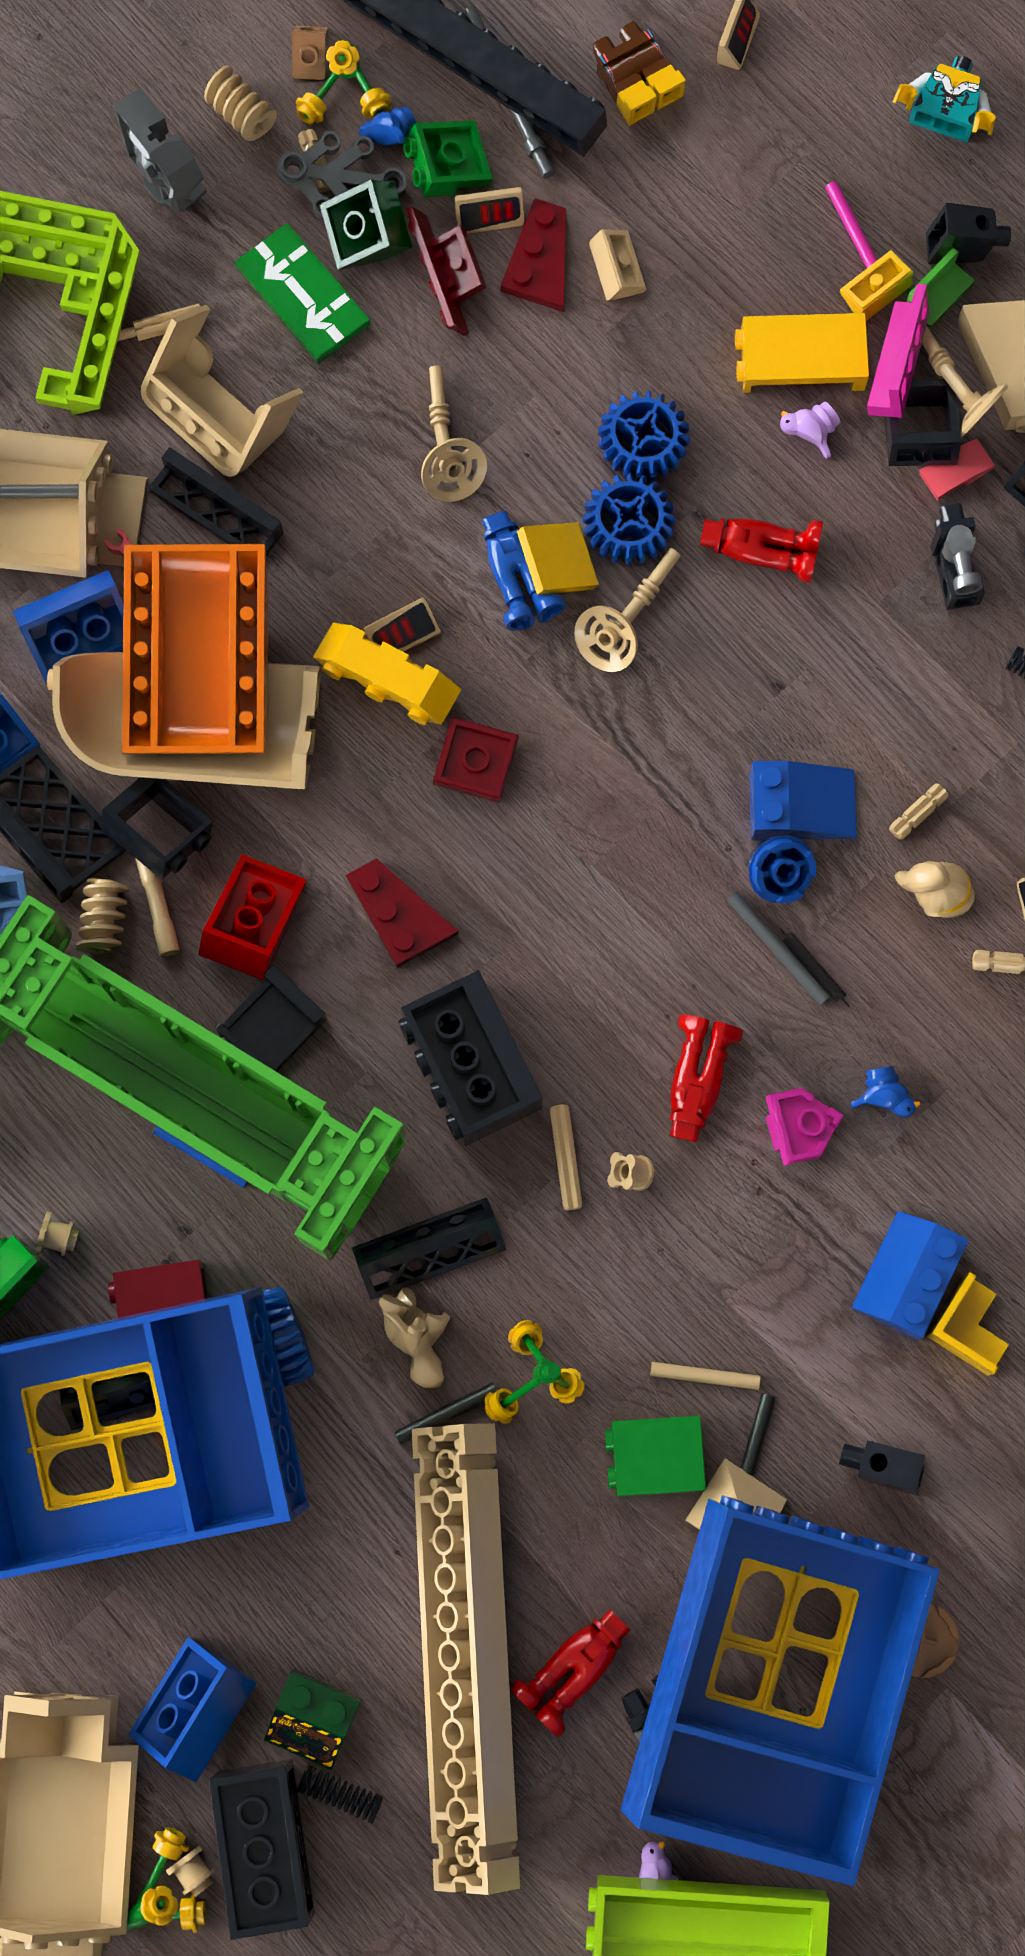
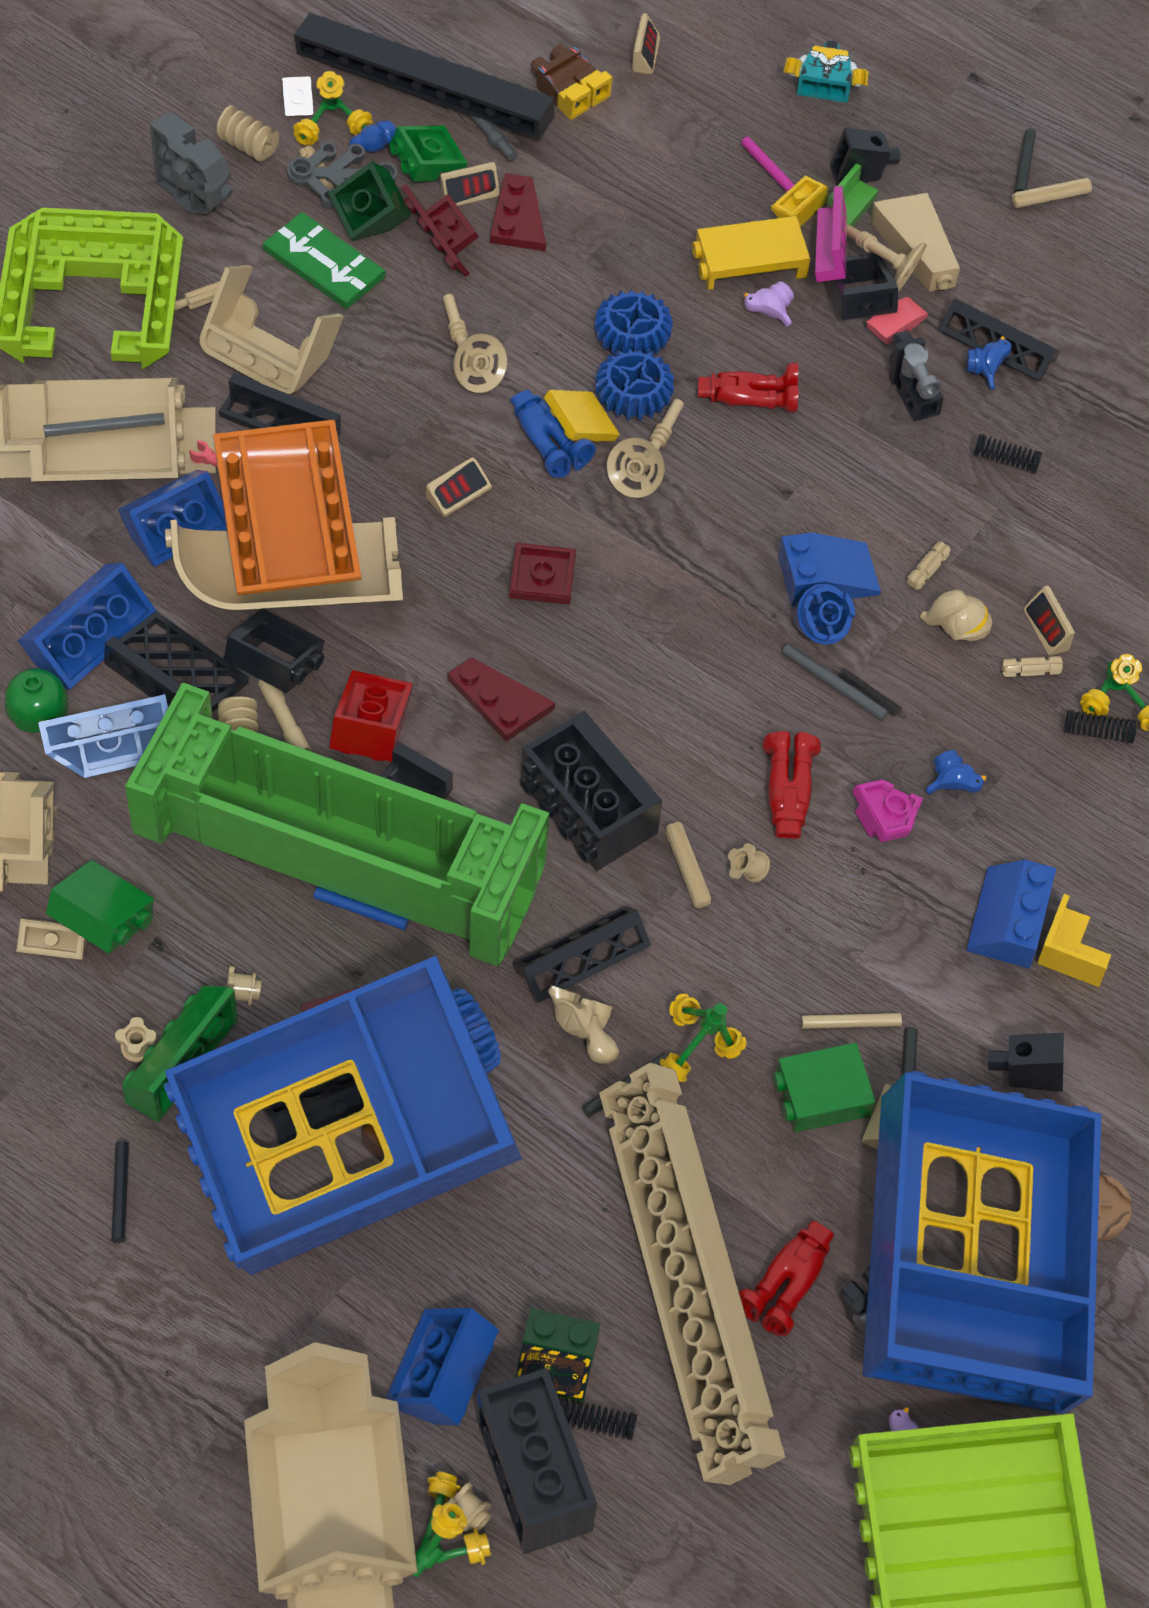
camera: 15 degrees left, 20 degrees down
(386, 673) = (454, 514): yellow brick -> none
(617, 264) = (582, 212): tan slope -> none

